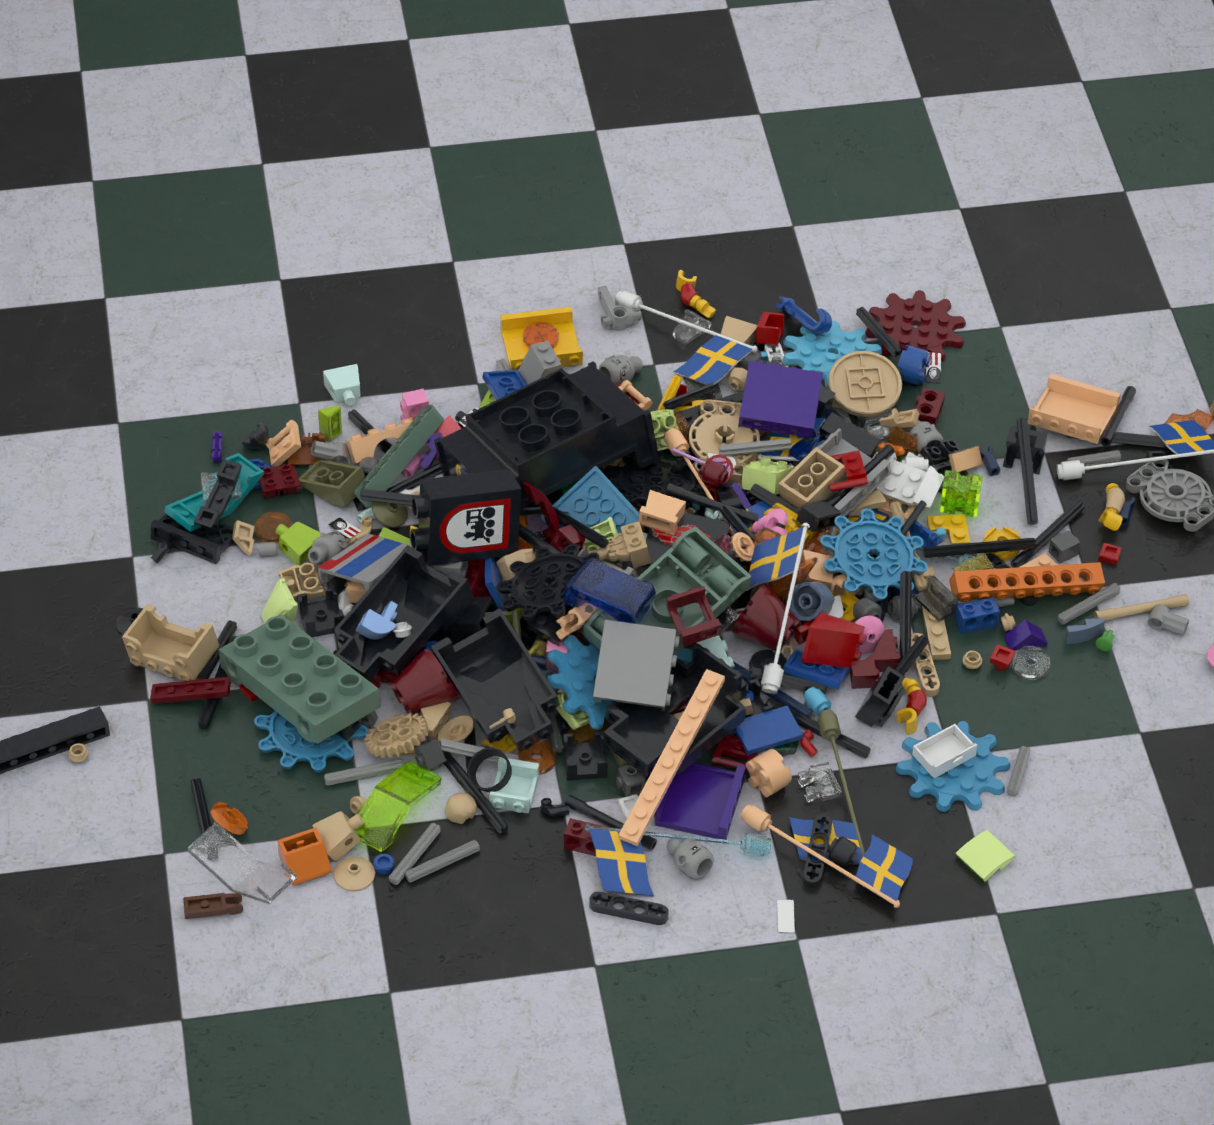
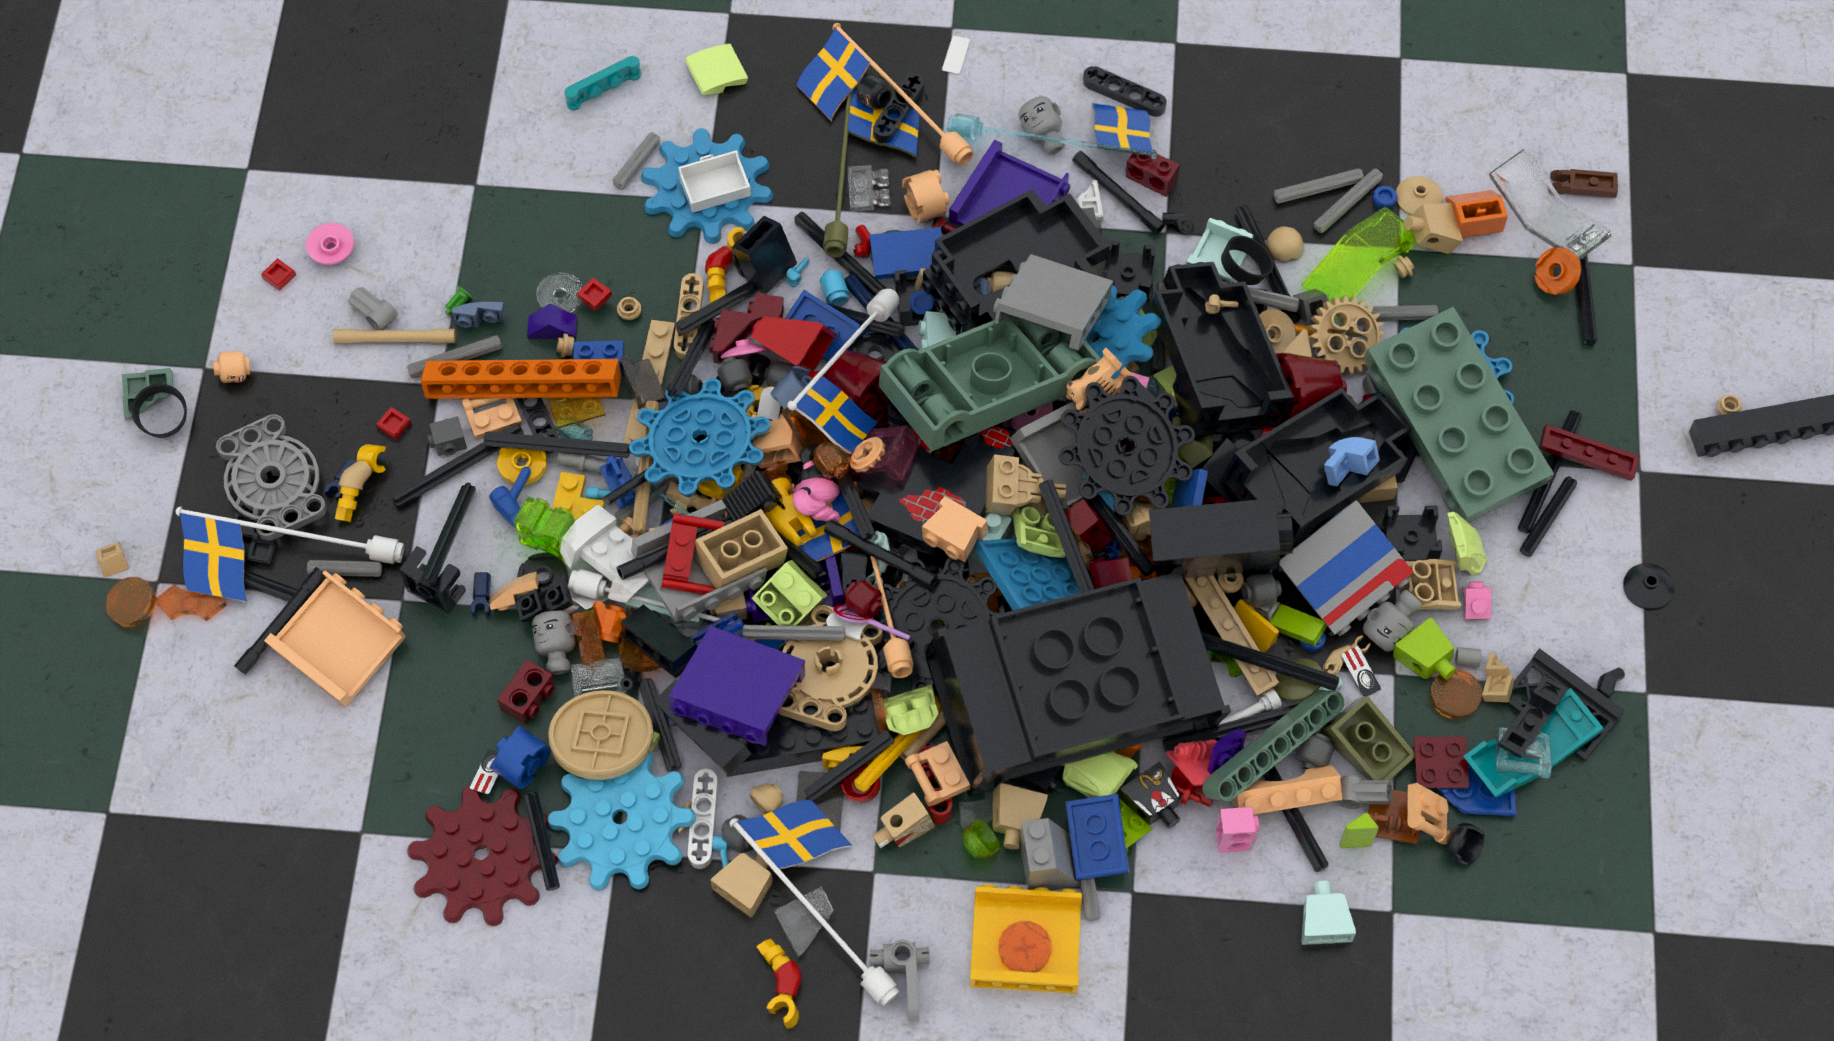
camera: 165 degrees left, 15 degrees up
(169, 647) = (1607, 511): tan windscreen -> none
(217, 446) = (1518, 849): dark purple axle -> none
(265, 584) = (1477, 601): none -> bright pink bracket
(402, 629) = (1314, 447): white plate -> none
(610, 591) = (1071, 364): clear blue windscreen -> none
(620, 368) = (930, 850): light grey piece -> none
(643, 376) = (904, 823): none -> tan torso
(671, 758) = (1037, 192): light nougat plate -> none
(699, 632) = (968, 313): dark red window -> none
(770, 328) = (695, 877): red panel -> none
(790, 307) = (631, 850): blue piece -> none
(853, 707) = (794, 277): none -> medium azure hand
(902, 419) = (573, 670): tan slope -> none
(998, 513) = (506, 501): none -> blue piece
(1071, 826) = (602, 81): none -> teal plate

